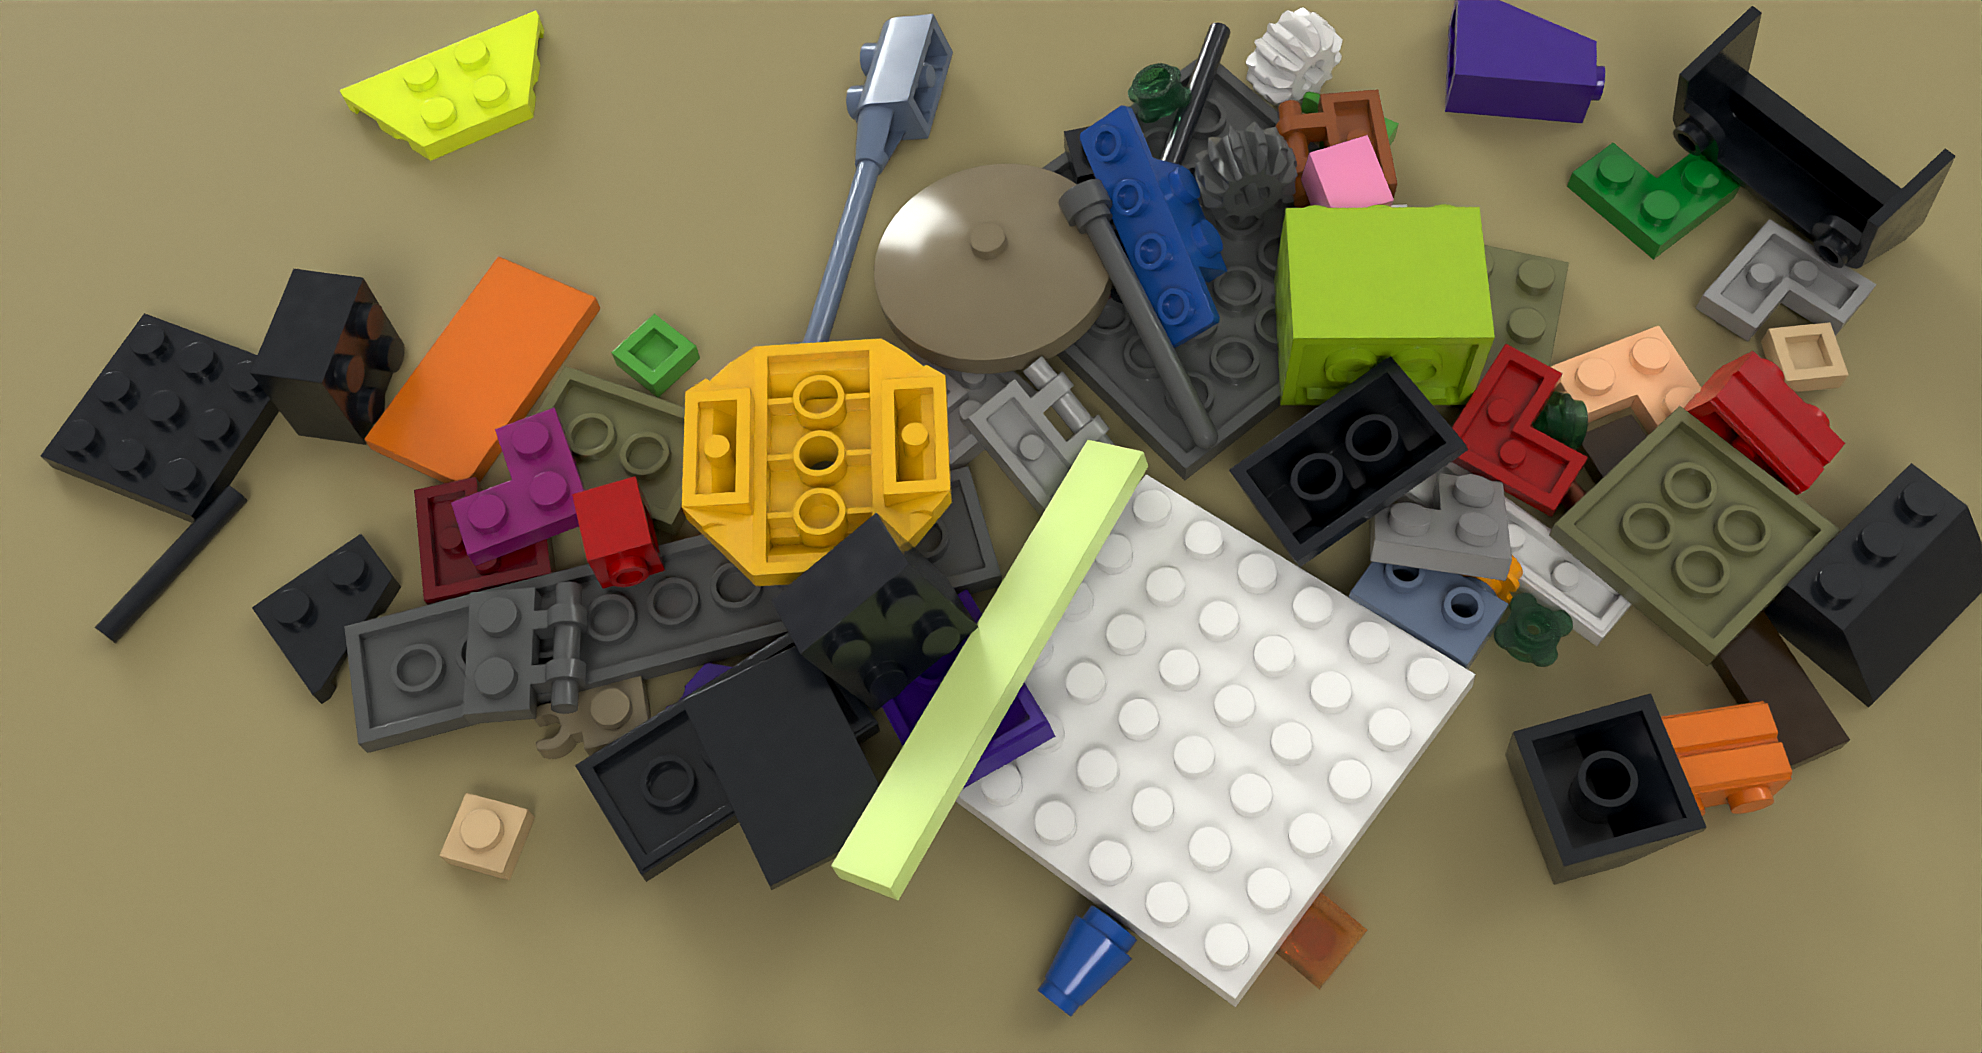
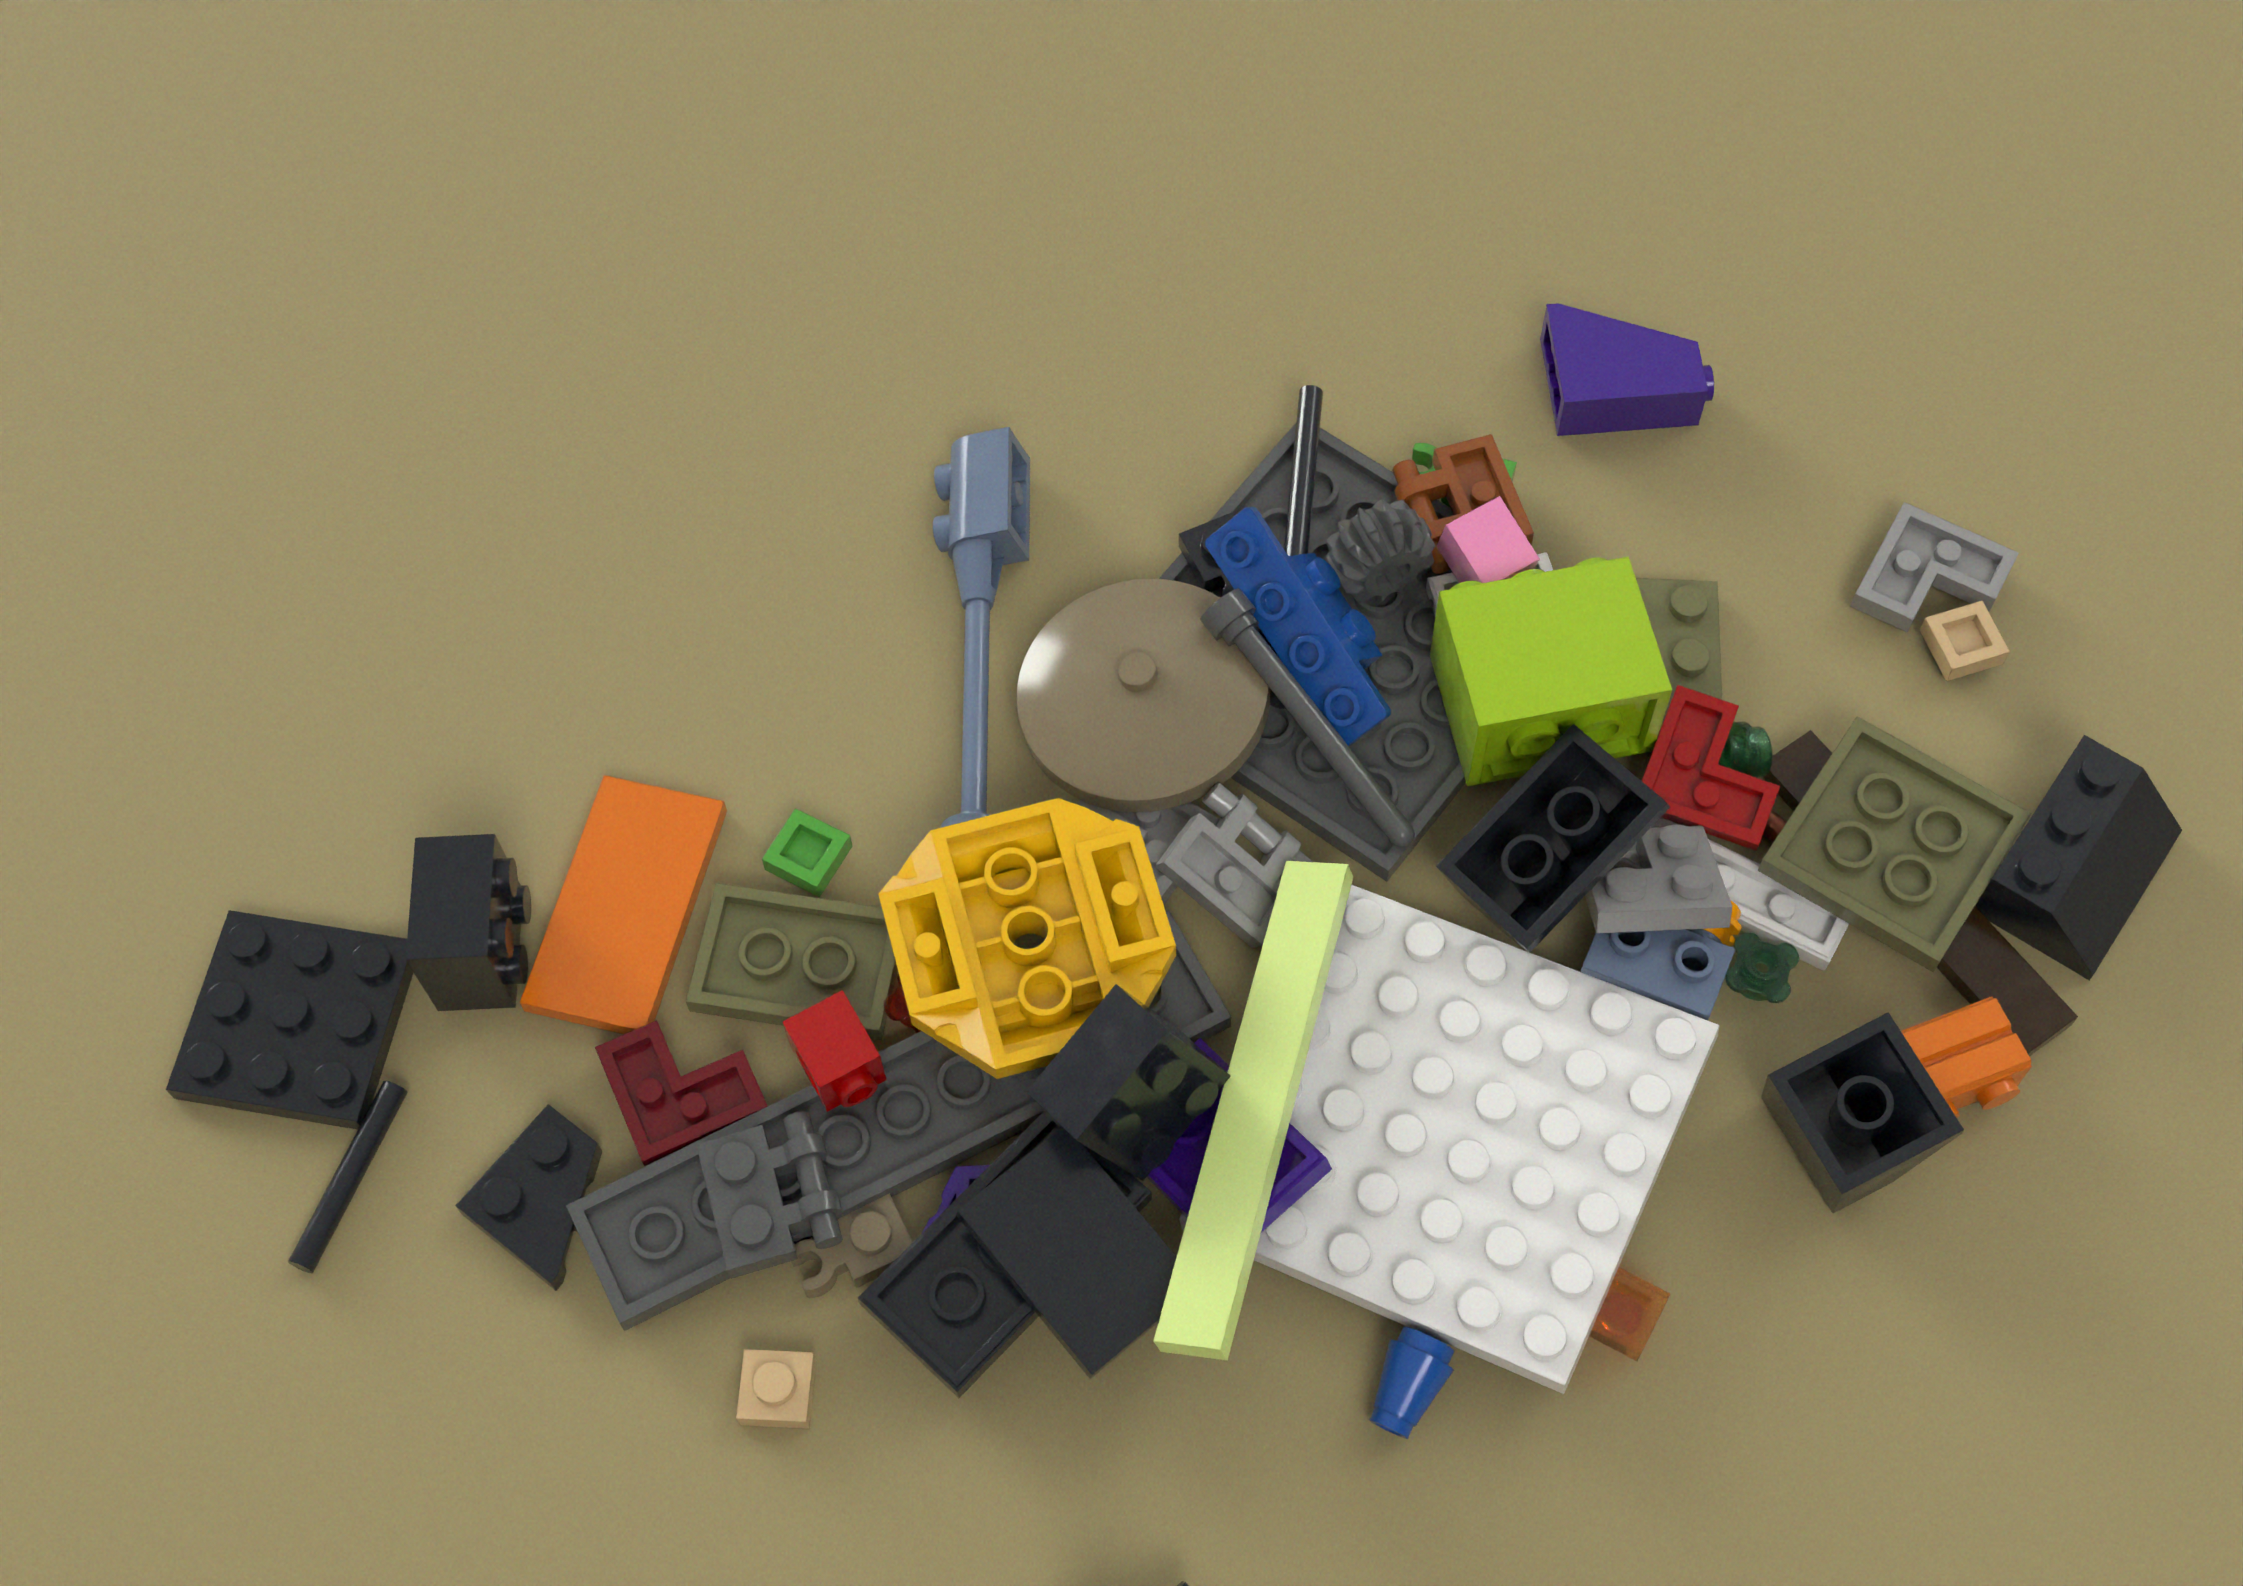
camera: 15 degrees left, 0 degrees up
(457, 90) = (496, 594): neon yellow wing -> none
(536, 499) = (736, 1028): magenta plate -> none
(1158, 92) = (1258, 463): clear green plate -> none
(1293, 57) = (1395, 411): white gear -> none
(1631, 373) = (1813, 687): light nougat plate -> none
(1648, 208) = (1780, 507): green plate -> none
(1767, 421) = (1941, 716): red brick -> none
(1791, 160) = (1915, 438): black windscreen -> none

